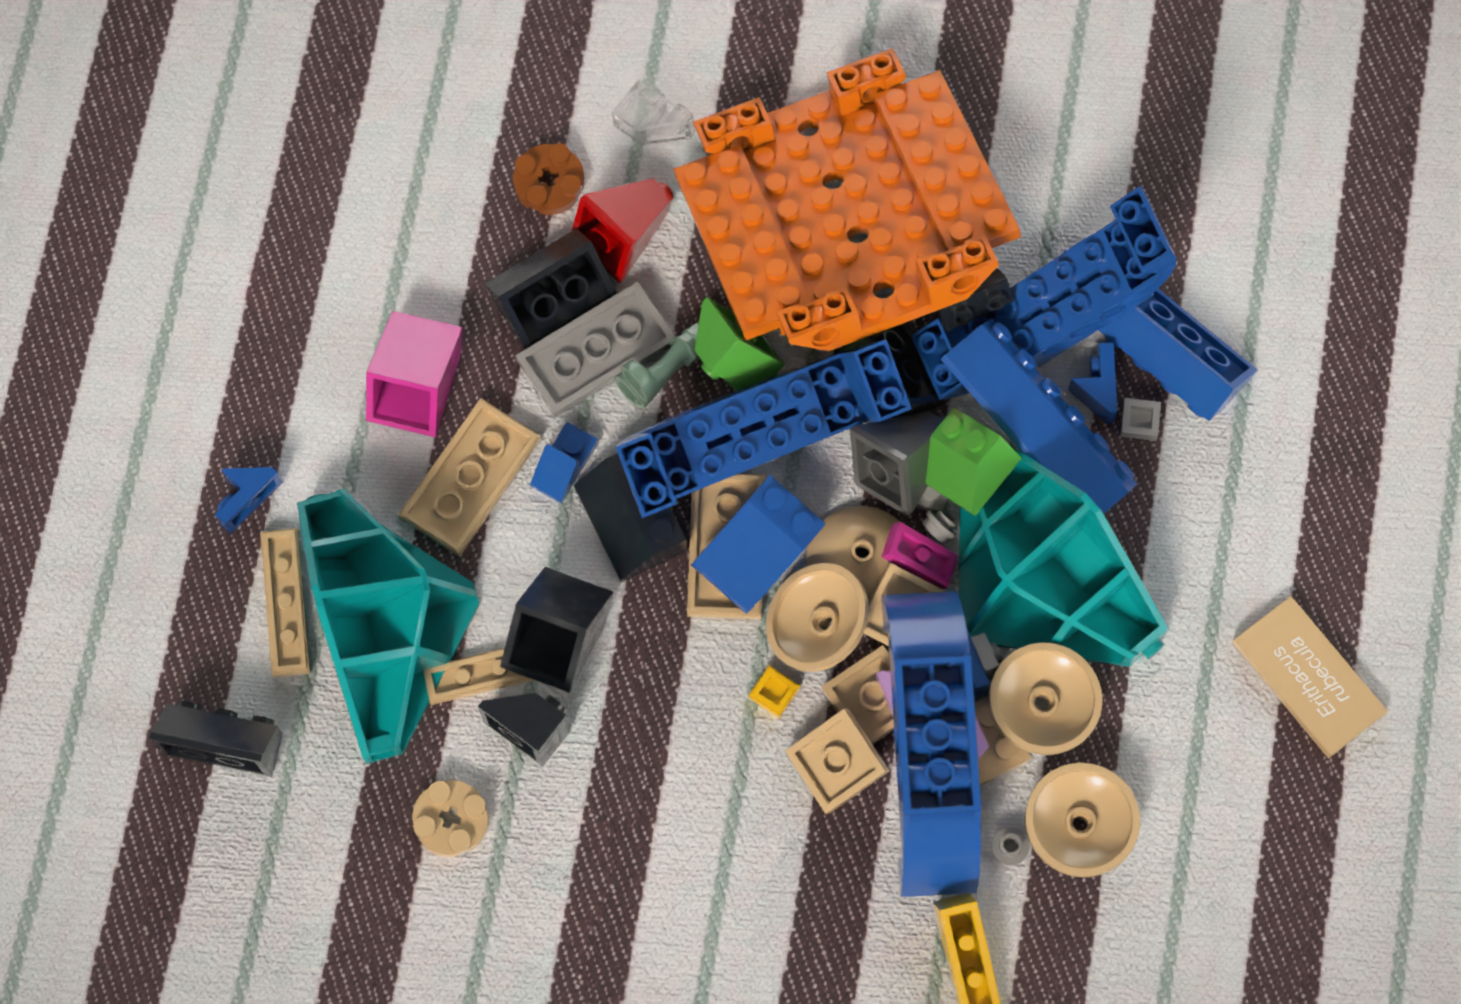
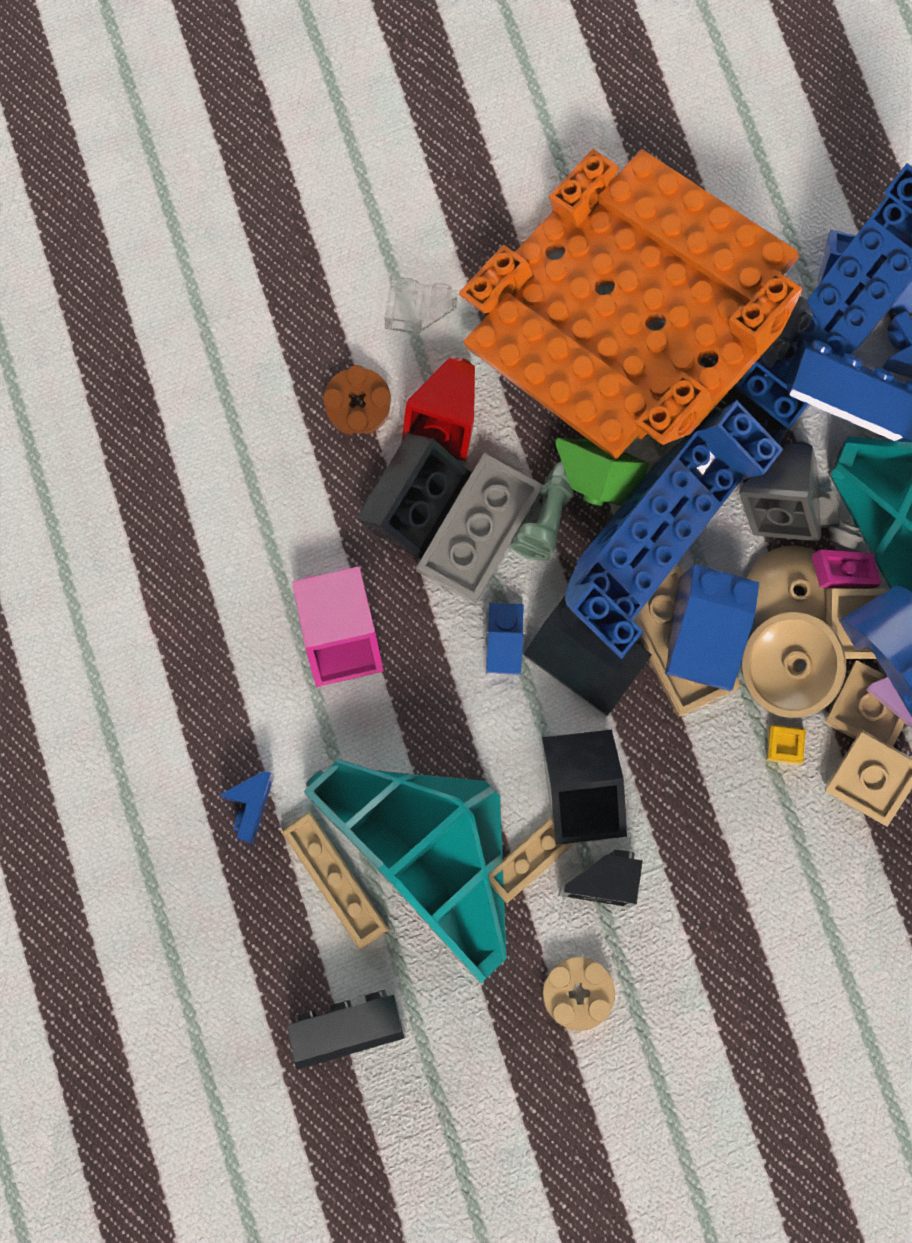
camera: 30 degrees left, 5 degrees up
(469, 477) = (432, 691): tan tile -> none
(968, 461) = (853, 471): bright green slope -> none

